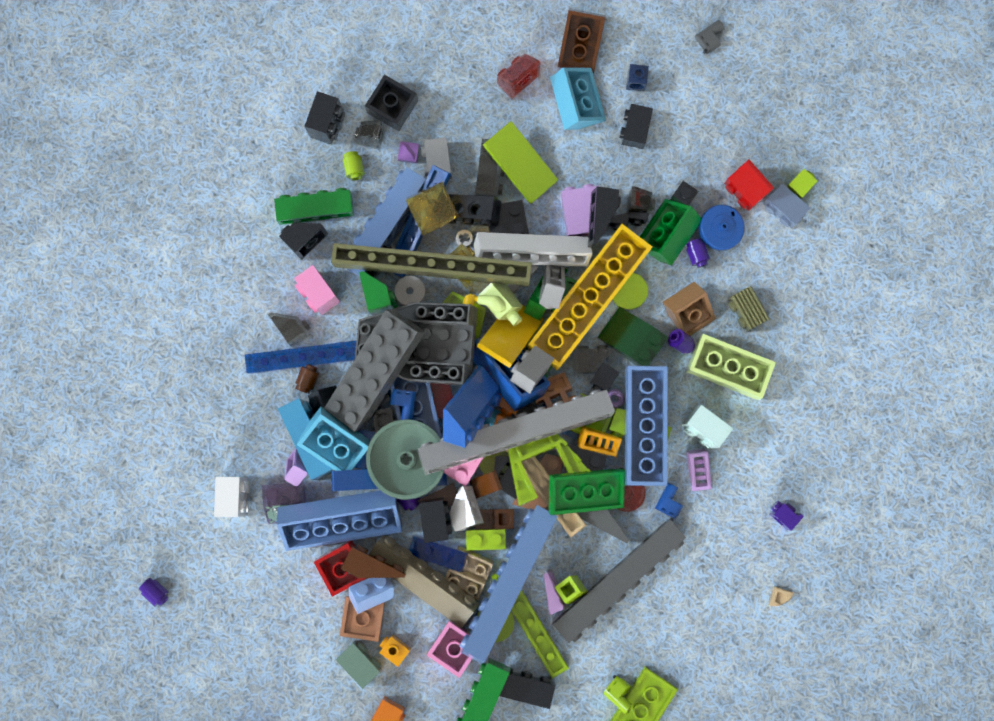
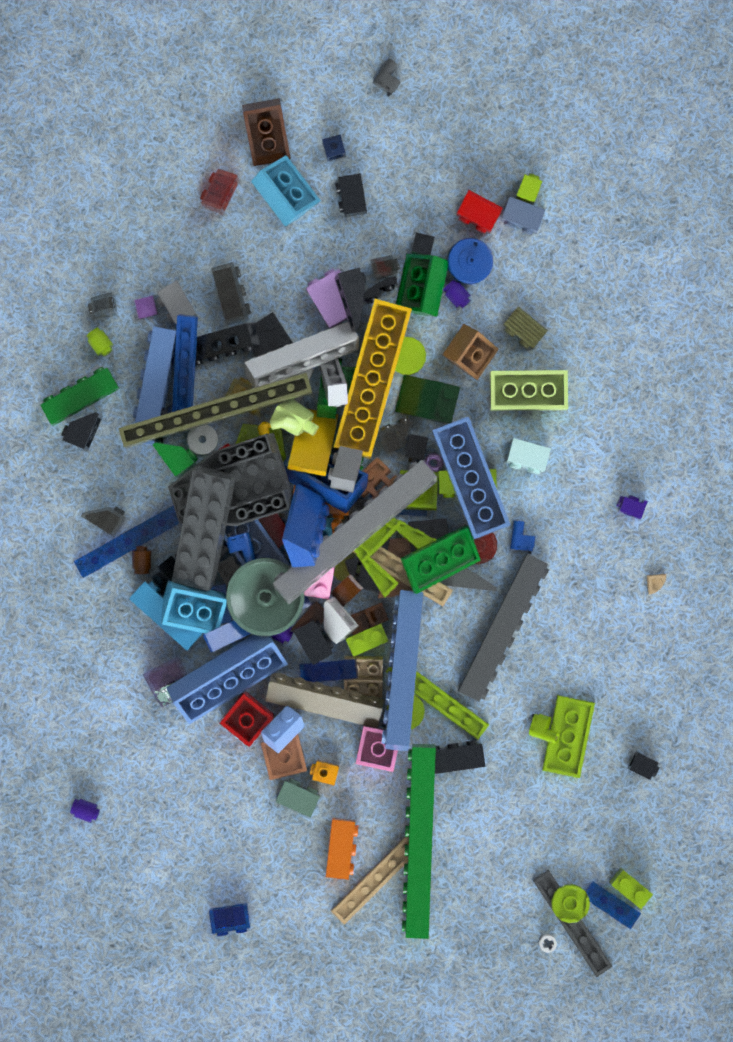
camera: 20 degrees left, 5 degrees up
(231, 496) = (119, 695): white brick -> none
(295, 469) = (166, 646): lavender slope -> none
(319, 294) = (116, 474): bright pink brick -> none
(324, 118) = (54, 308): black brick -> none
(367, 566) = (267, 707): reddish brown slope -> none
(391, 103) = (111, 267): black brick -> none
(432, 208) = (193, 357): clear yellow slope -> none
(462, 233) = (236, 373): white bush -> none
(520, 162) = (256, 276): lime tile -> none
(555, 602) = (448, 663): lavender slope -> none
(571, 589) = (462, 653): lime brick -> none
(585, 431) = (434, 502): light orange slope -> none
(681, 341) = (474, 385): dark purple brick -> none
(692, 470) = (527, 483): lavender slope -> none

